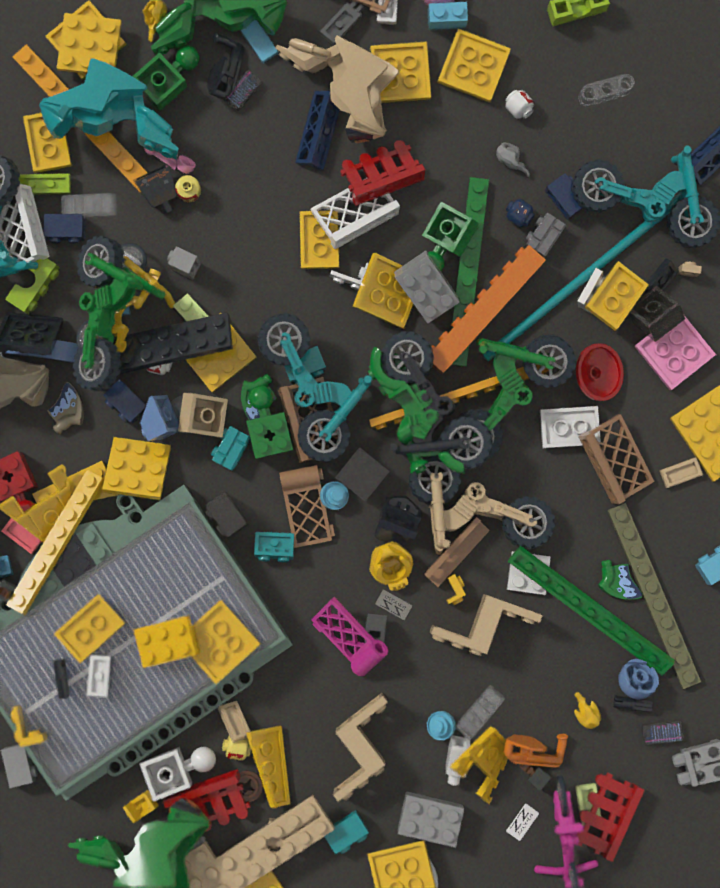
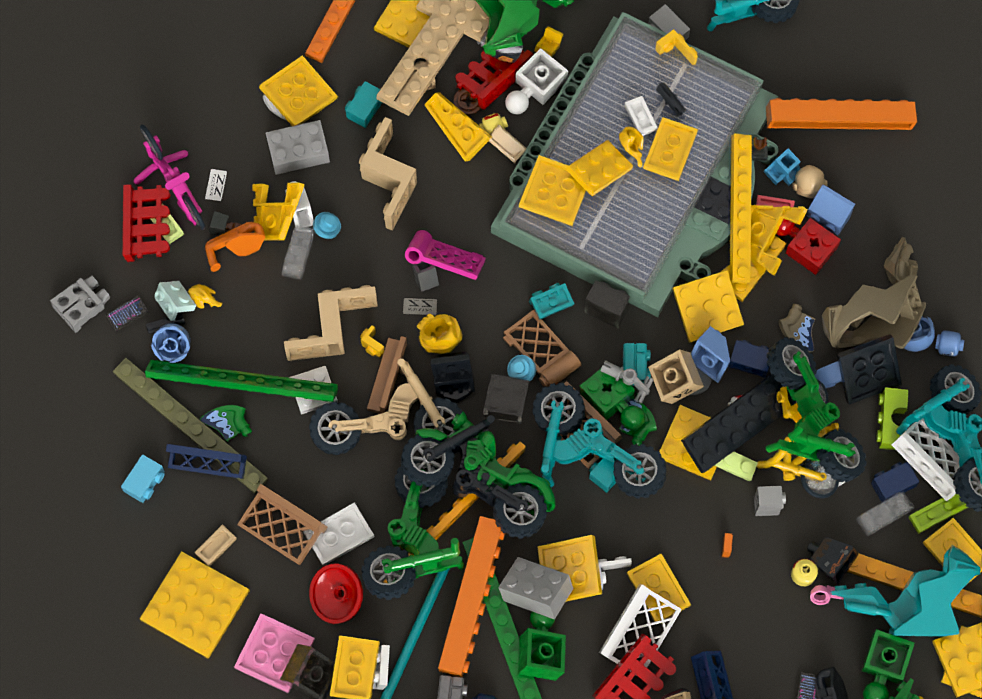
camera: 155 degrees right, 15 degrees down
(122, 655) = (631, 141): none -> yellow piece
(240, 246) = (727, 545): none -> orange tile
(247, 430) = (629, 377): none -> light grey pin
(615, 722) = (173, 299): none -> light aqua bracket
(653, 554) = (203, 453): none -> dark blue fence

